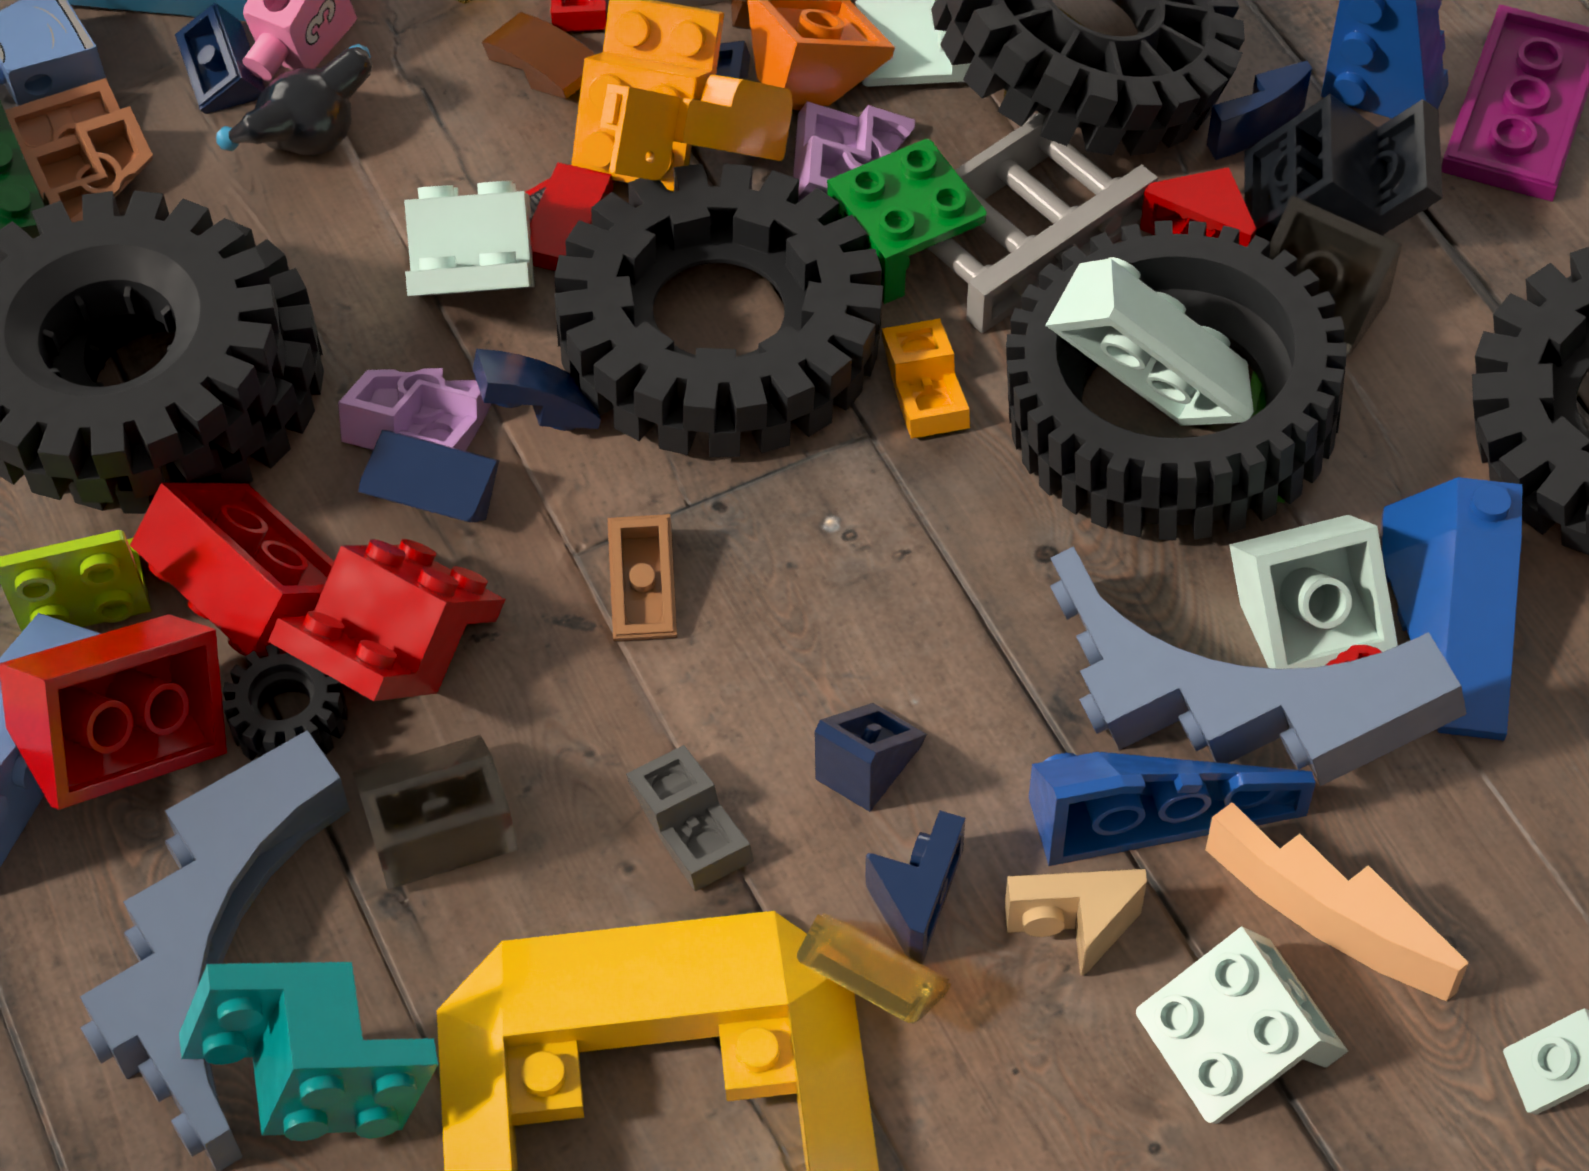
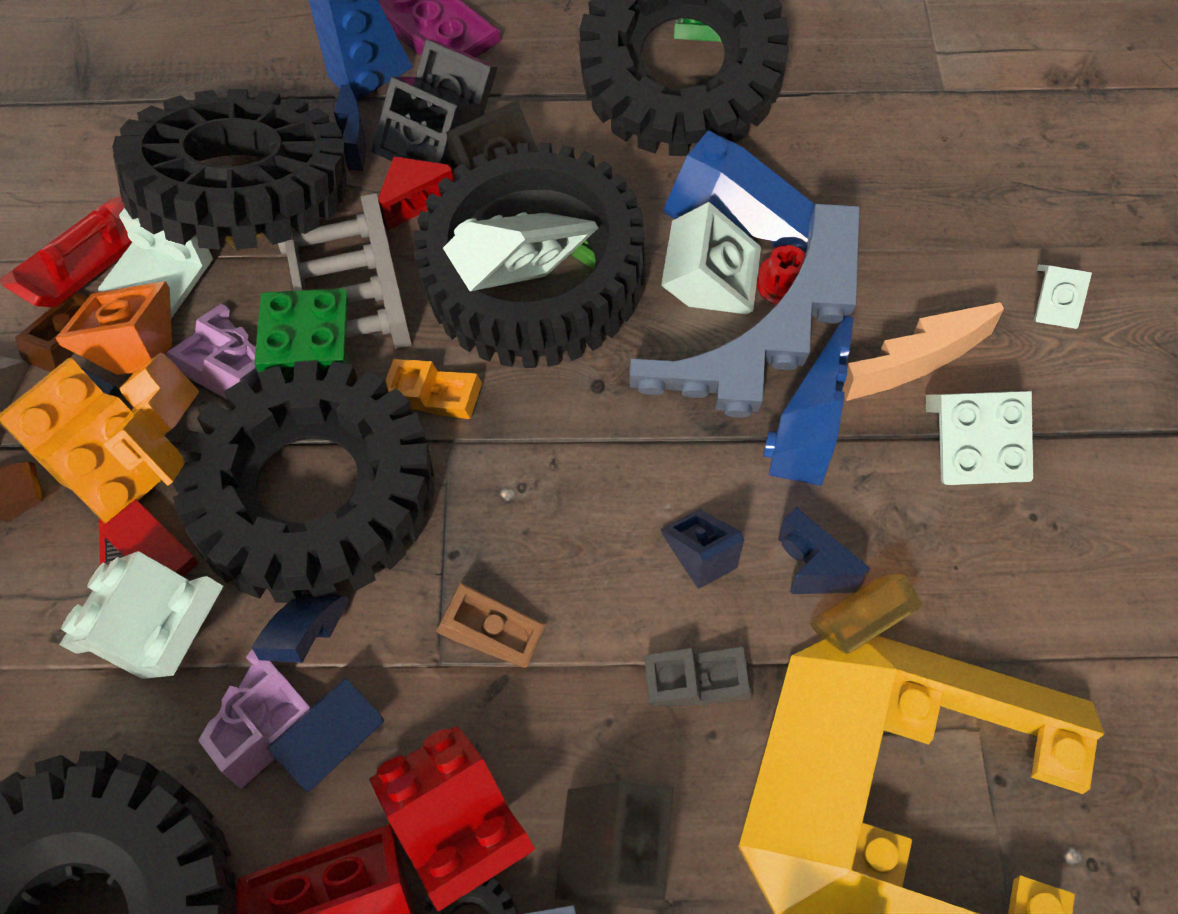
camera: 65 degrees left, 5 degrees up
(1092, 903) = (879, 475): tan slope -> none

